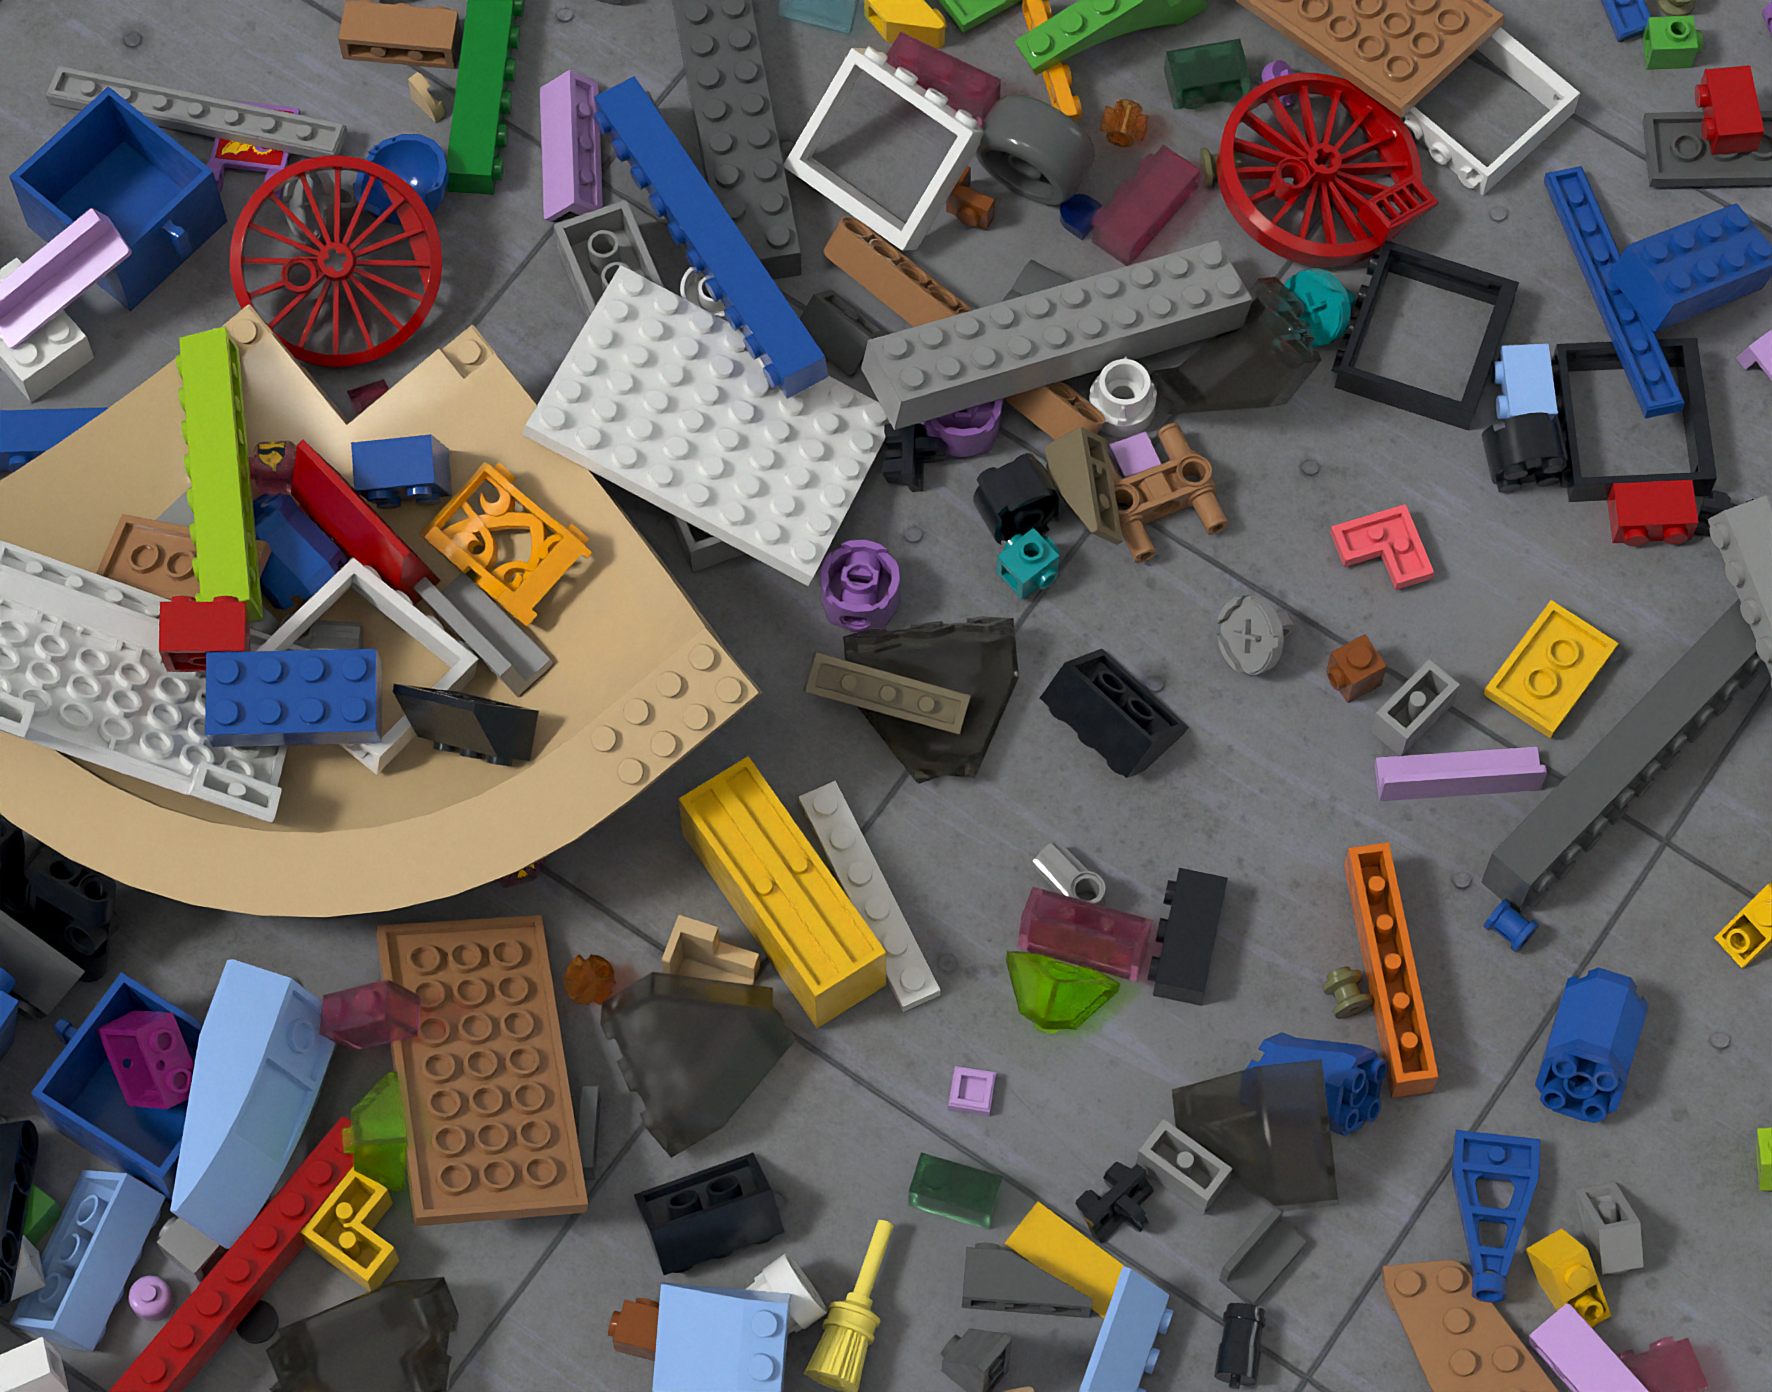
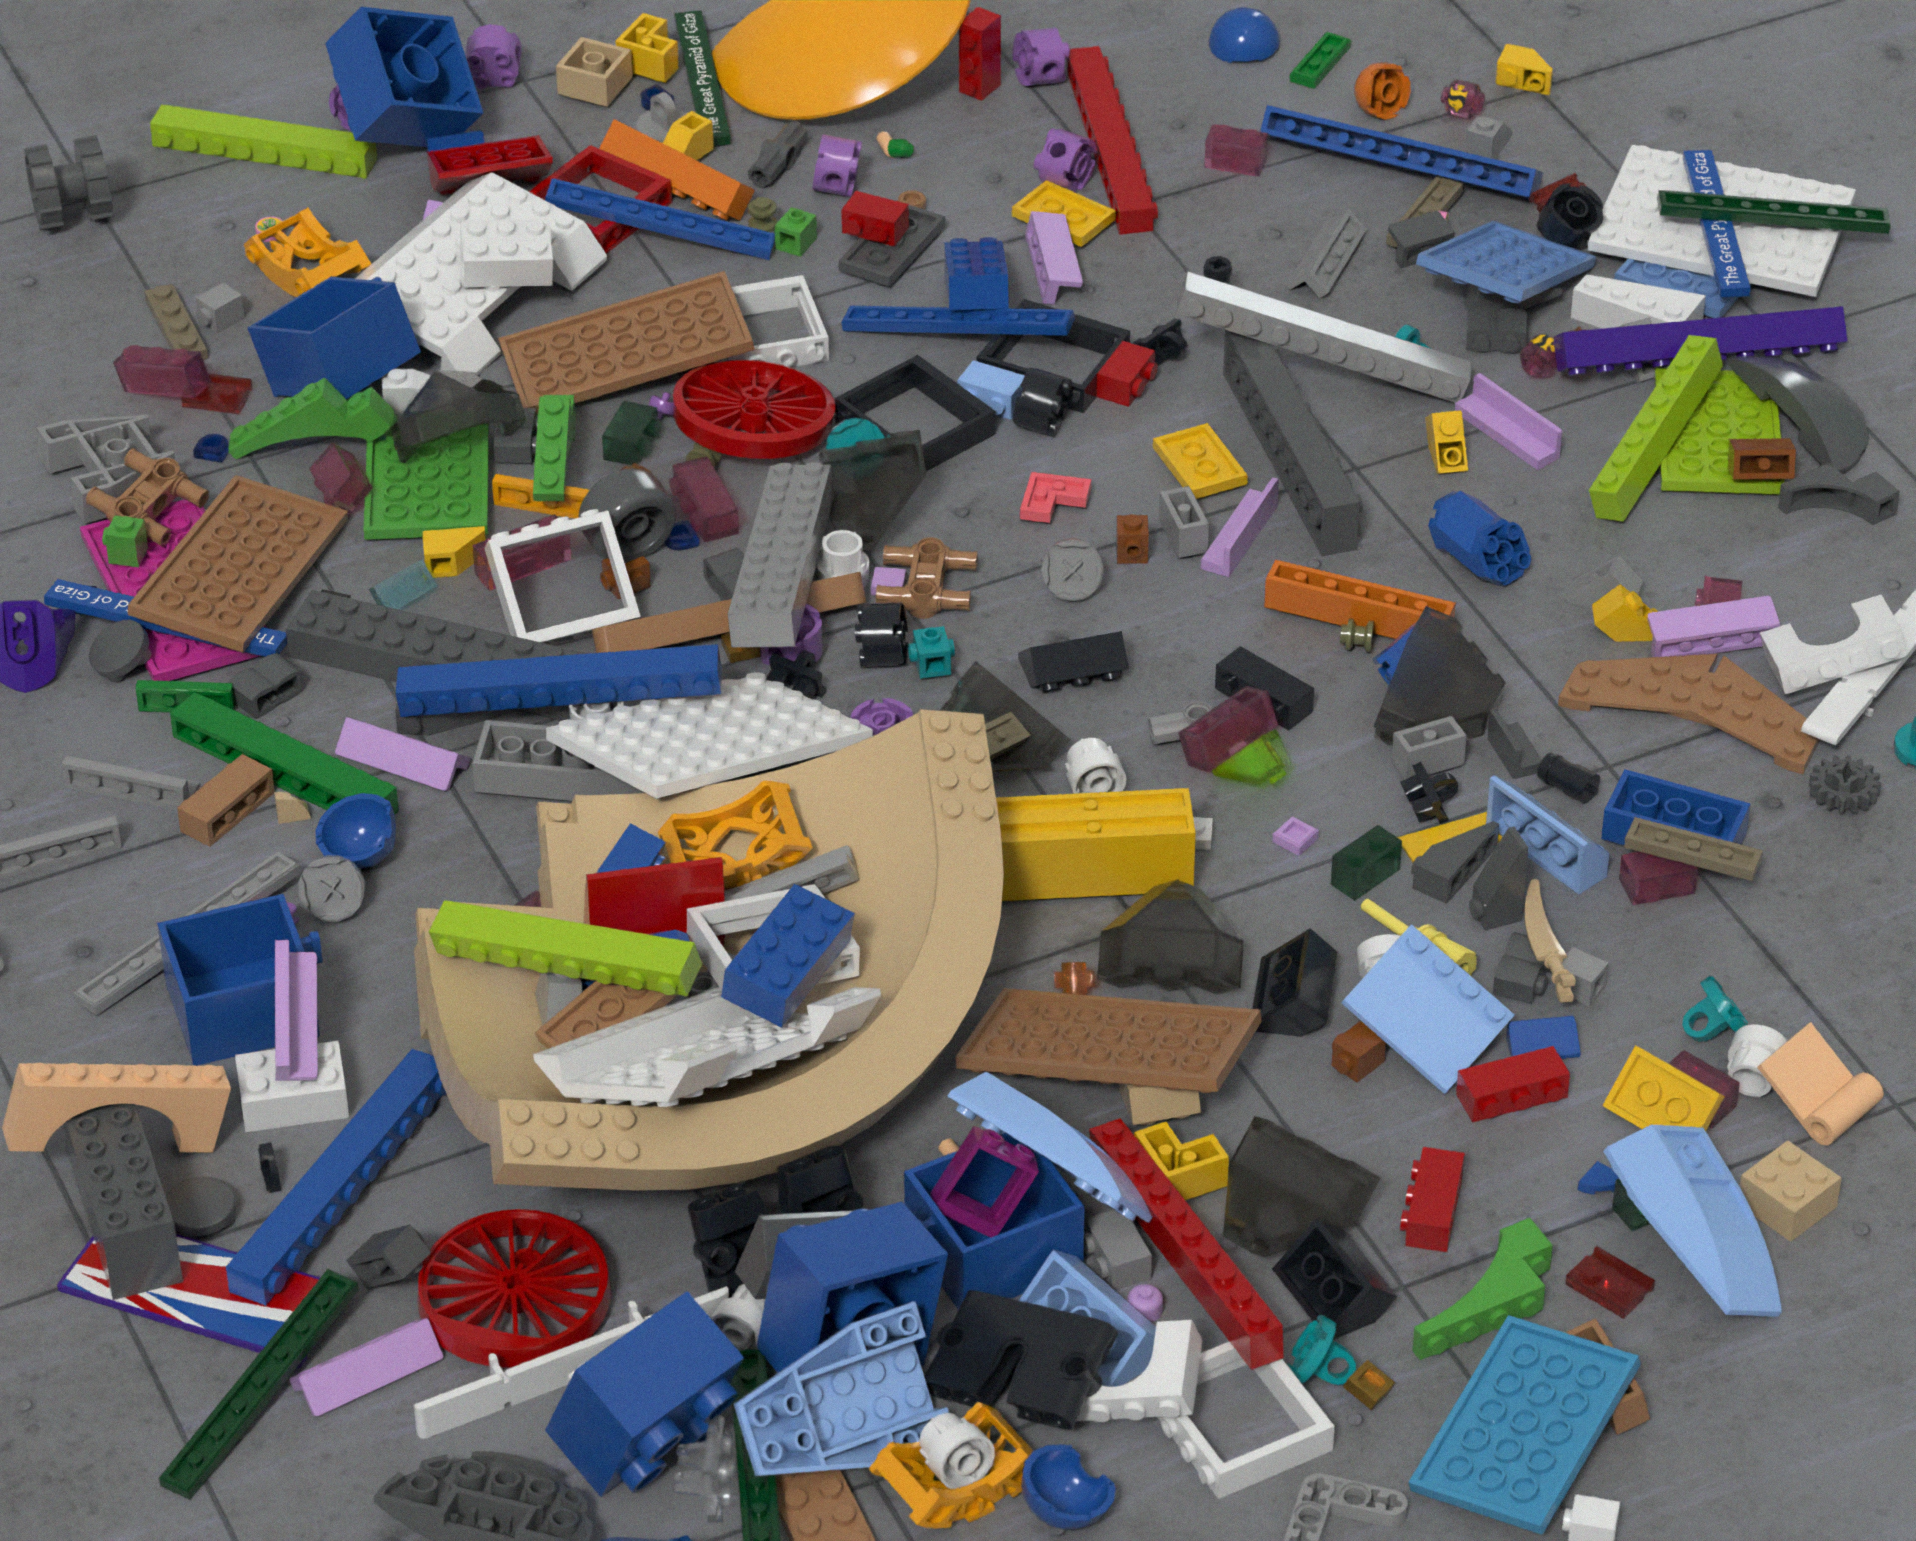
camera: 60 degrees left, 25 degrees down
(194, 628) = (697, 980): red slope -> none
(370, 1015) = (1036, 1060): clear pink brick -> none
(379, 1134) = (1129, 1092): clear neon green slope -> none
(418, 228) = (392, 878): red piece -> none
(469, 723) = (880, 879): black slope -> none
(698, 953) = (1099, 907): tan panel -> none
(928, 830) = (1094, 768): none -> white piece
(1084, 478) = (912, 592): dark tan slope -> none
(1380, 224) = (818, 381): red slope -> none
(1499, 1159) = (1528, 610): blue plate -> none
(1511, 925) = (1366, 548): blue bush -> none

